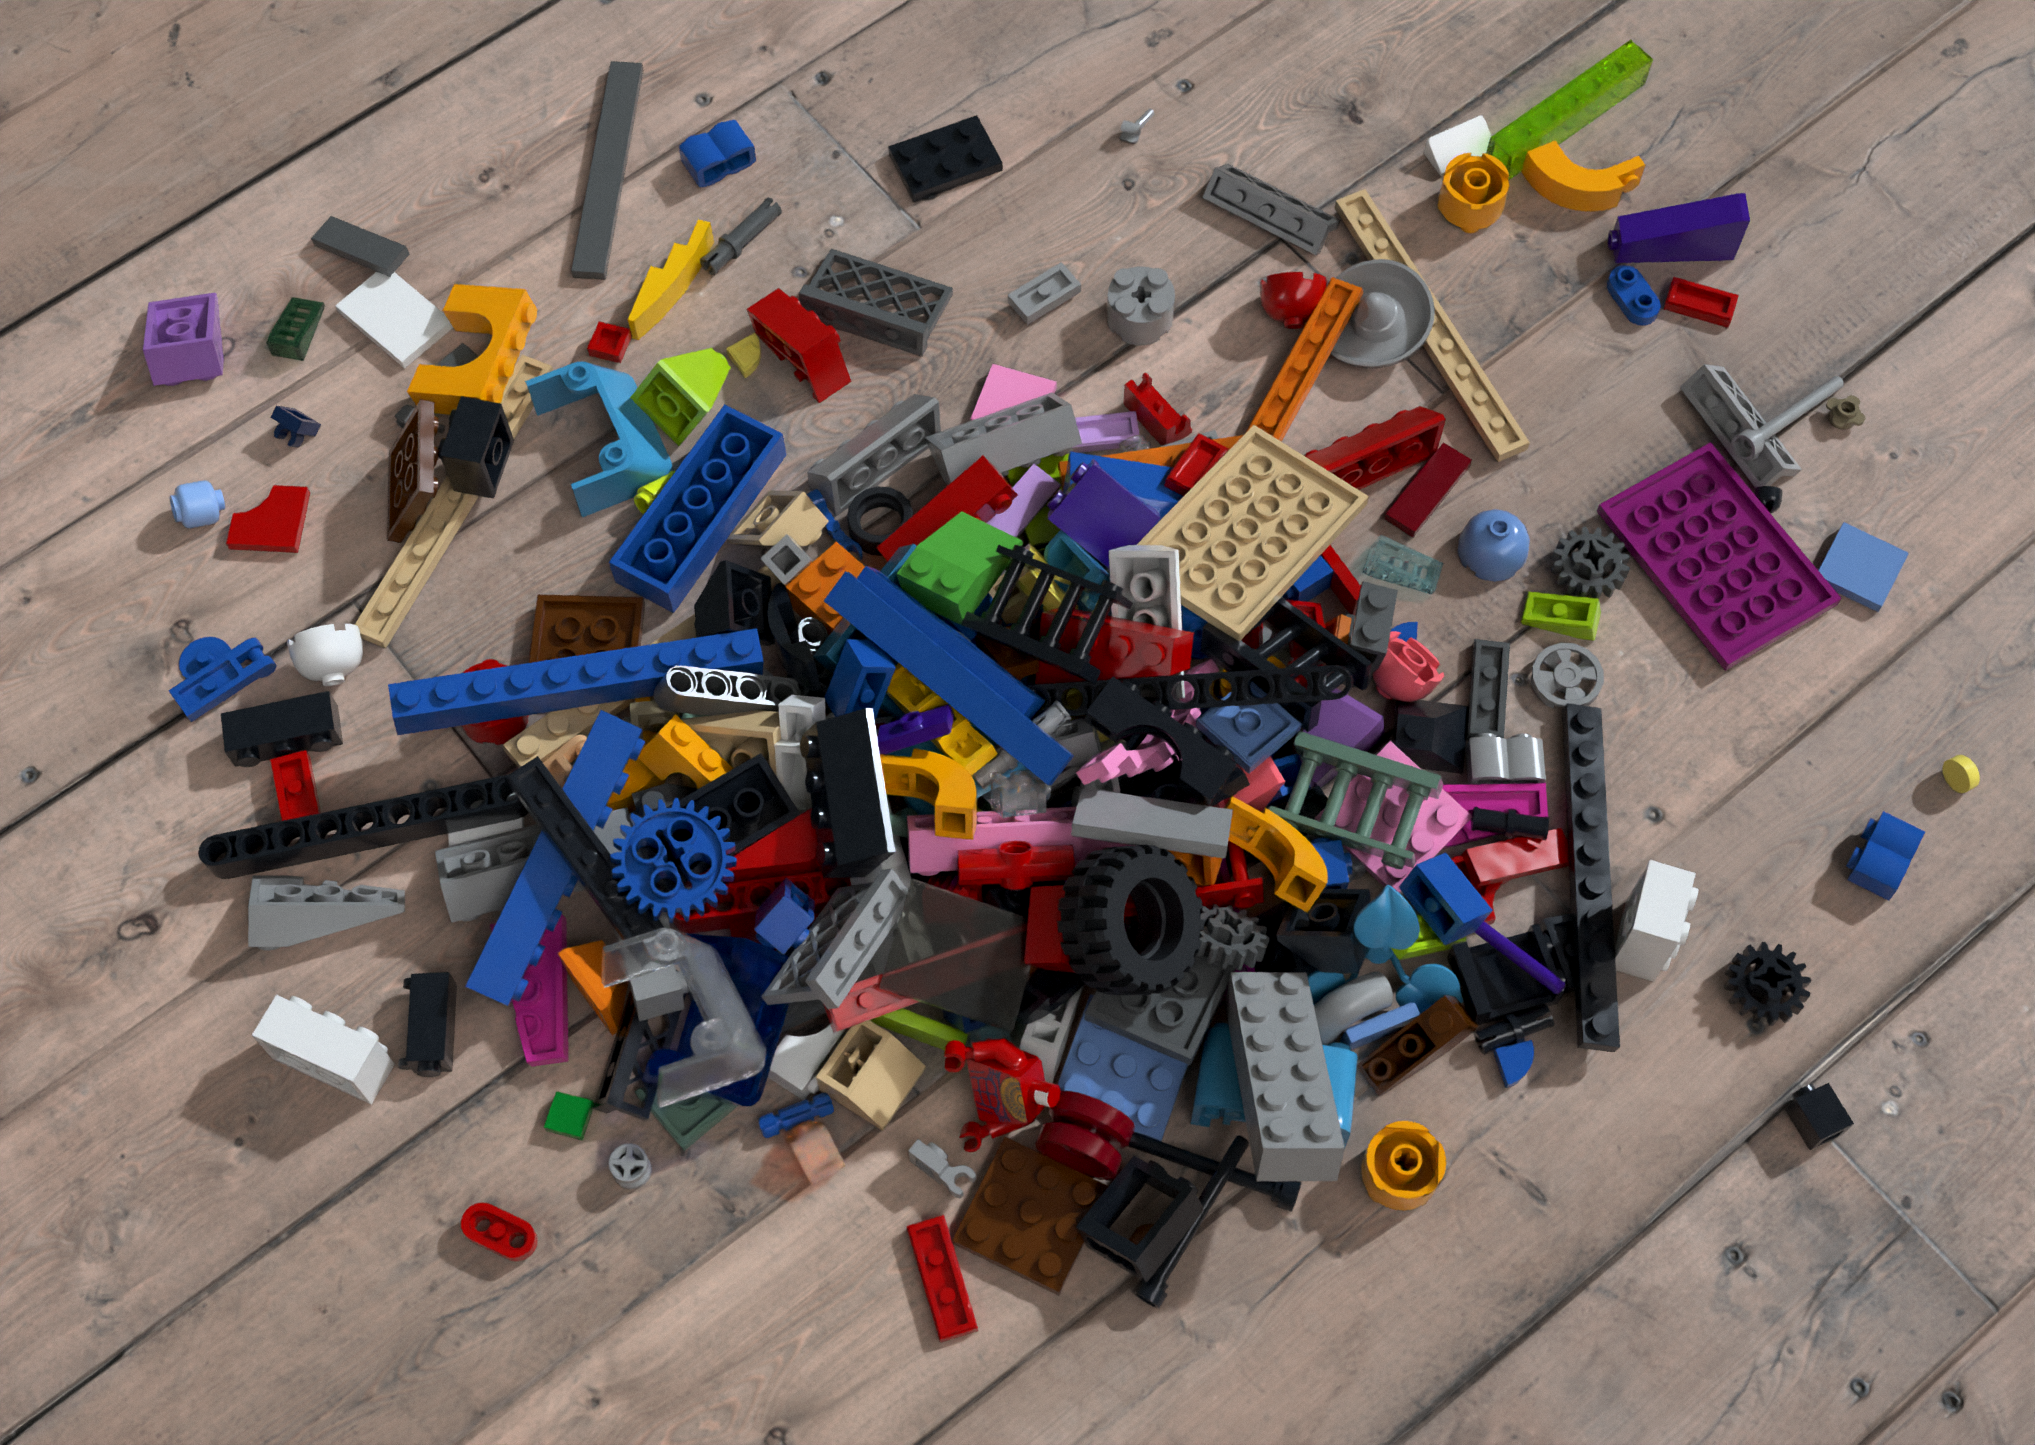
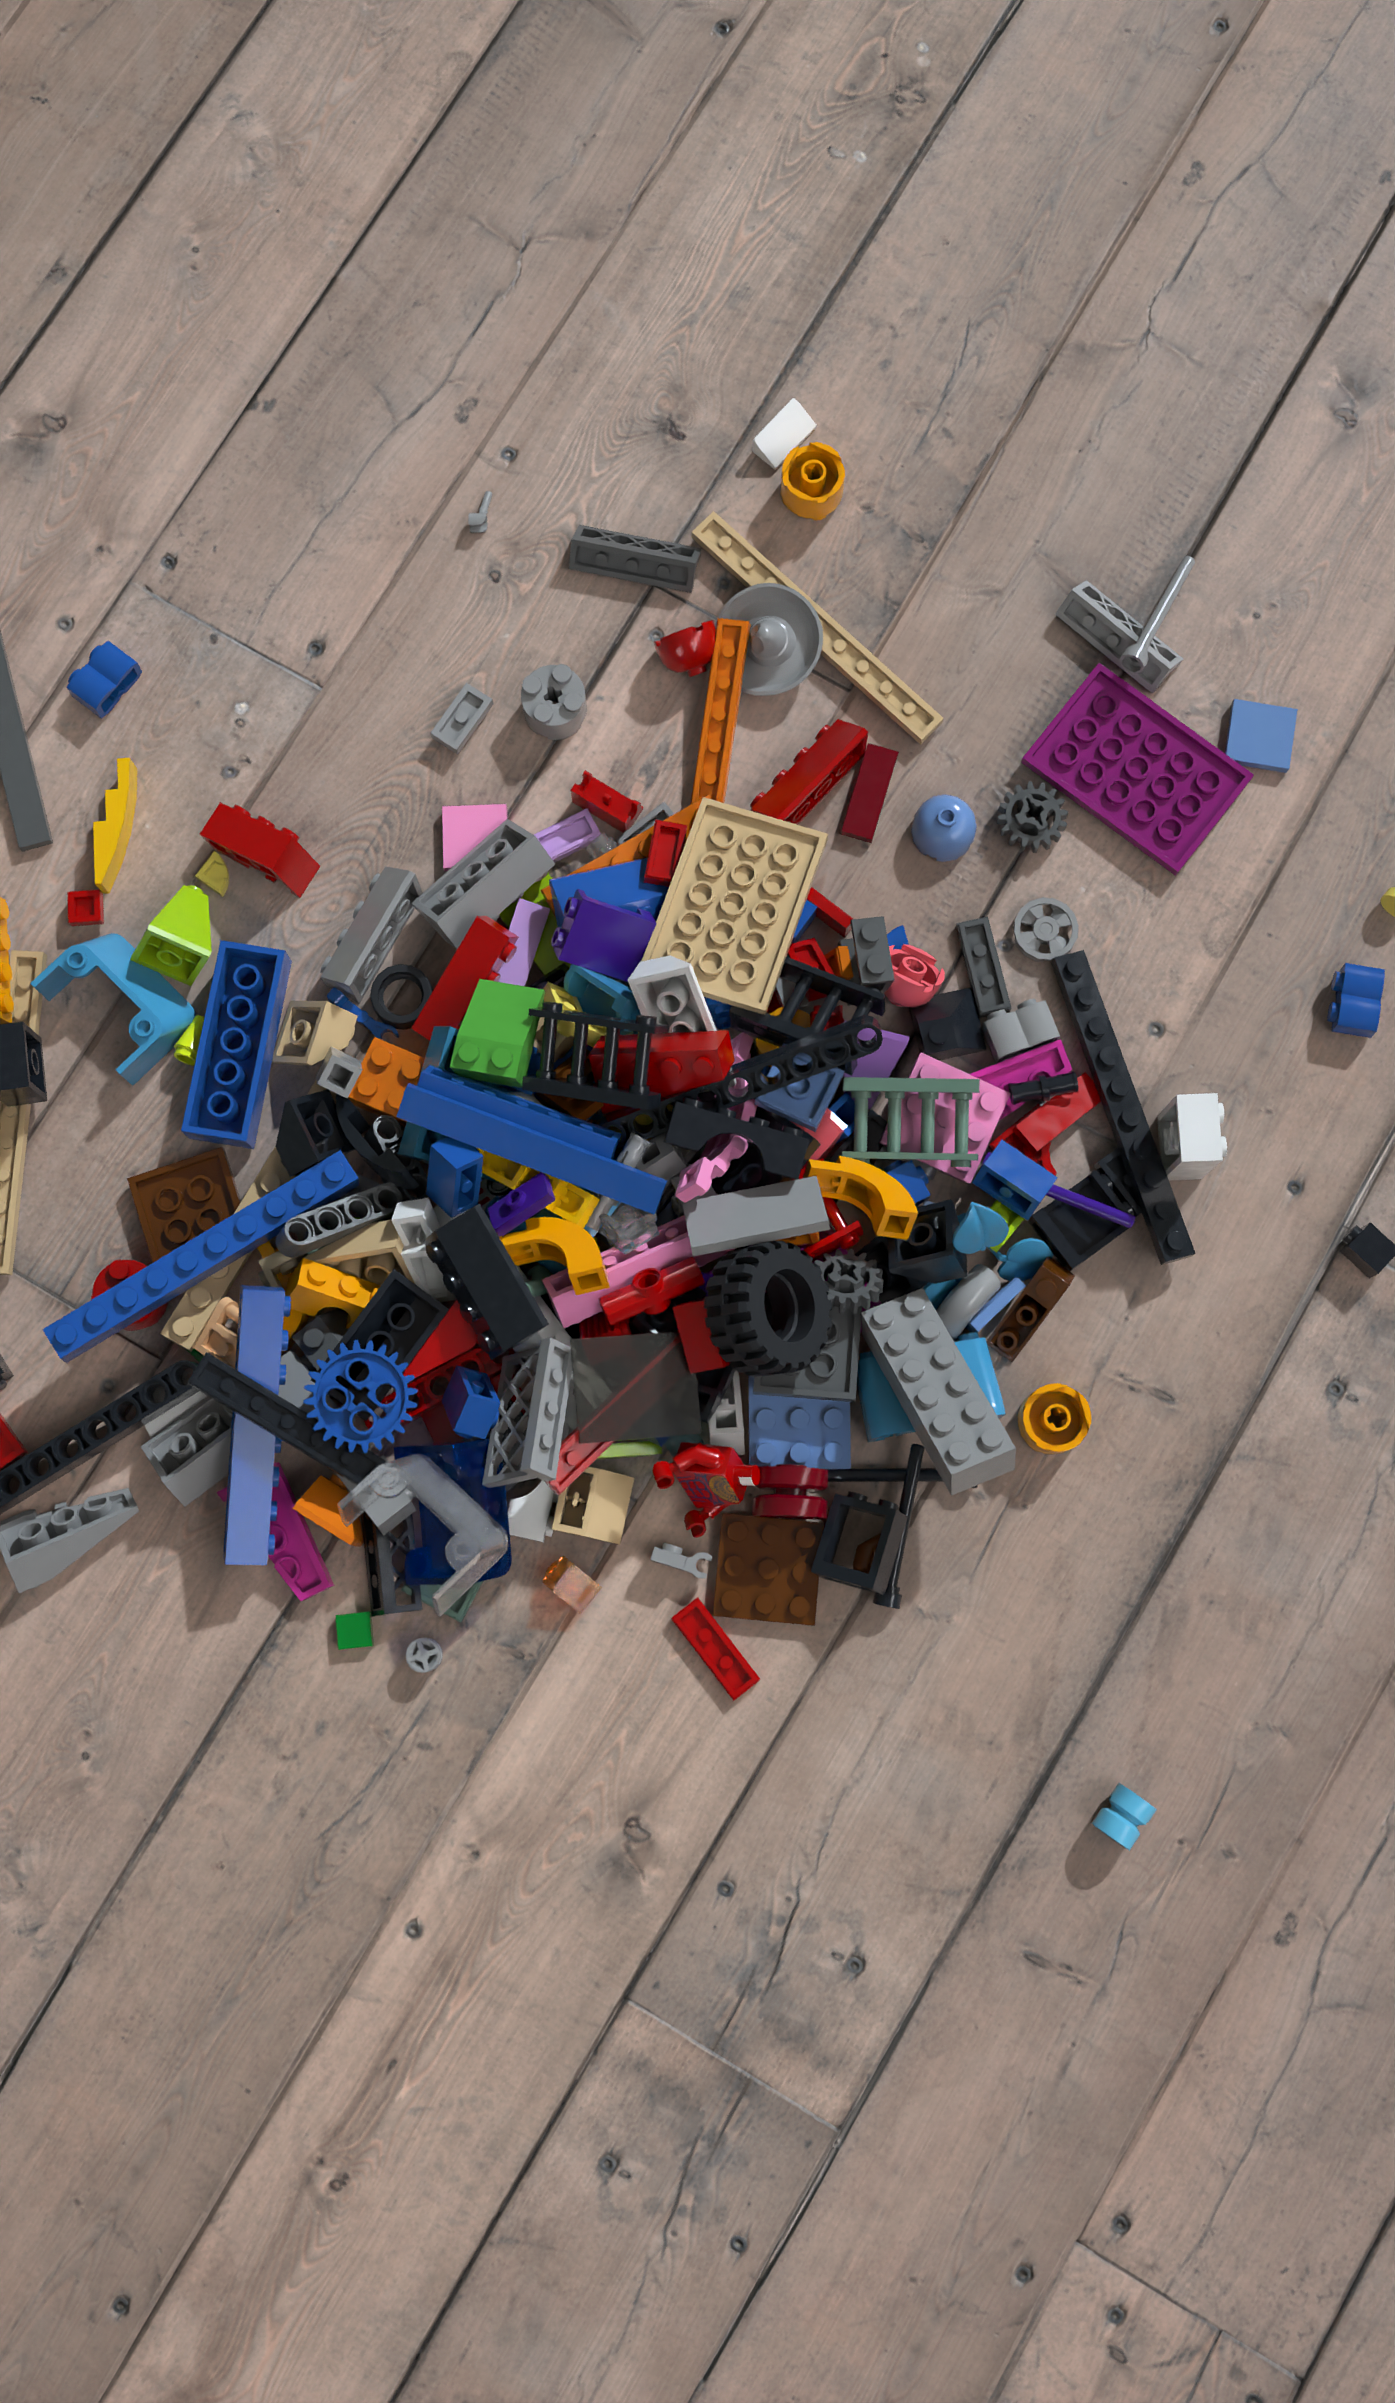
camera: 20 degrees left, 15 degrees up
(324, 1047) = (125, 1656): white brick -> none
(430, 1024) = (204, 1598): black brick -> none
(501, 1232) = (340, 1750): red plate -> none
(731, 244) = (156, 768): dark grey pin -> none
(795, 1114) = (543, 1559): blue axle -> none
(866, 318) = (307, 803): dark grey fence -> none
(945, 158) = (317, 608): black plate -> none
(1398, 575) = (858, 886): clear light blue slope -> none
(1514, 1028) = (1103, 1265): black pin -> none
(1514, 1061) = (1112, 1292): blue tile -> none
(1563, 614) = (1022, 872): lime slope -> none
(1572, 106) = (870, 362): clear neon green brick -> none
(1577, 187) = (901, 442): light orange arch -> none
(1632, 292) = (983, 534): blue plate -> none
(1682, 232) = (1010, 459): dark purple slope -> none
(1701, 302) = (1047, 521): red tile -> none
(1769, 496) = (1164, 697): black hinge -> none
(1777, 972) = (1299, 1162): black gear -> none
(1841, 419) = (1200, 597): dark tan plate -> none

